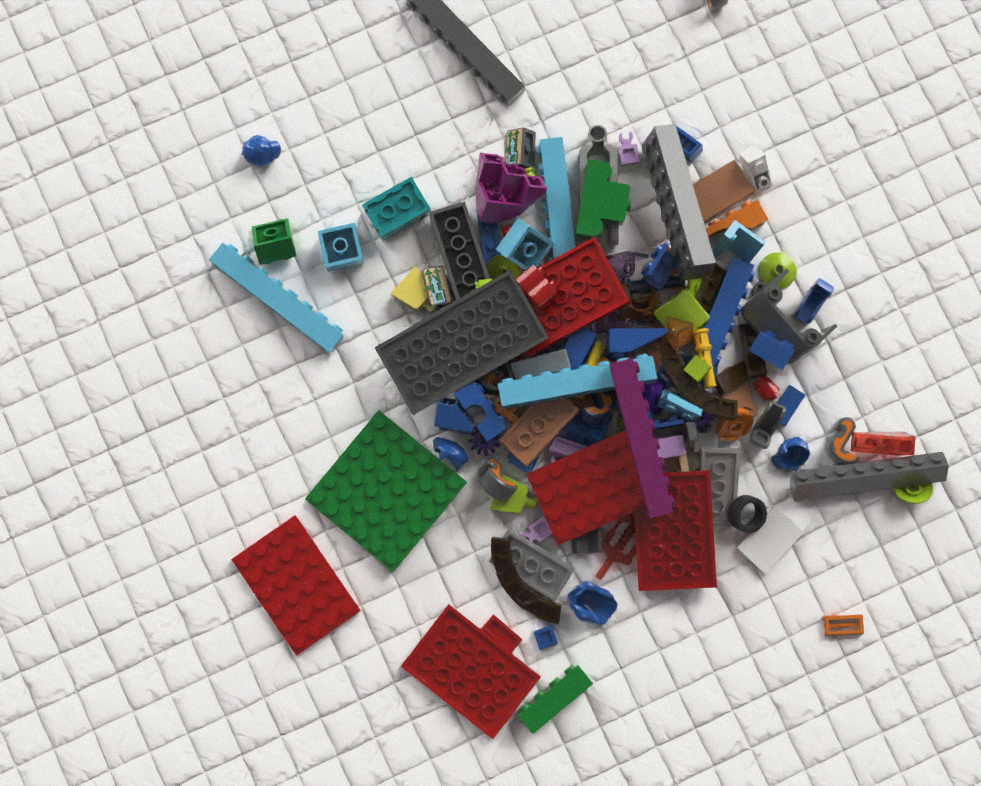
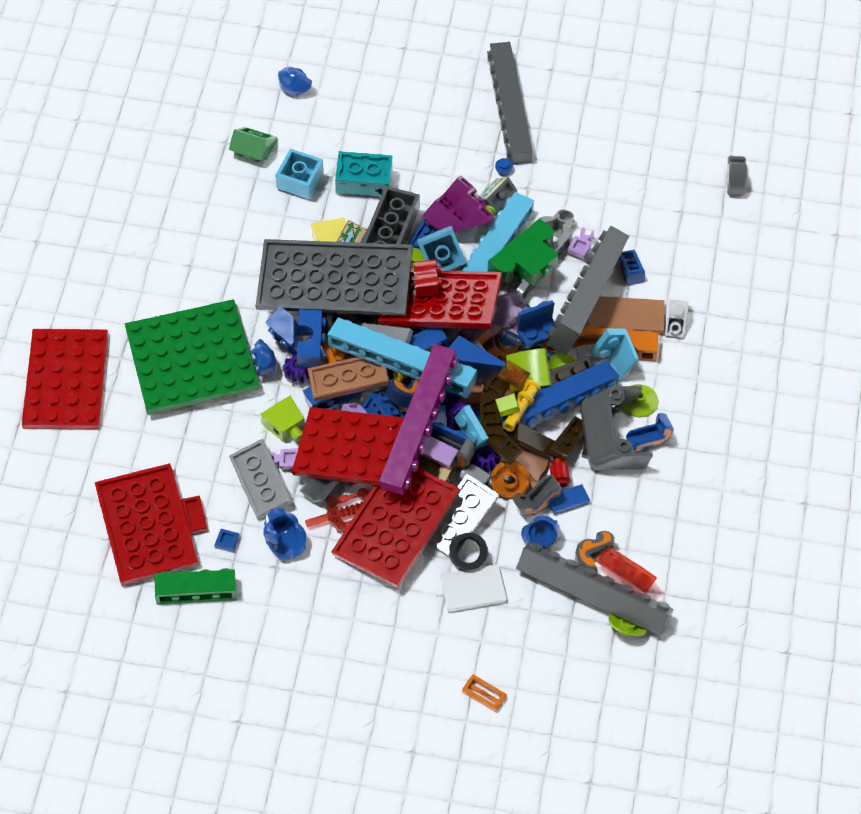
camera: 40 degrees right, 25 degrees down
(277, 298) = (222, 180): medium azure brick -> none
(493, 483) = (279, 396): dark grey animal -> none
(506, 114) = (504, 166): none -> blue plate
(516, 587) = (234, 485): dark brown tile -> none
(772, 350) = (583, 437): blue hinge -> none

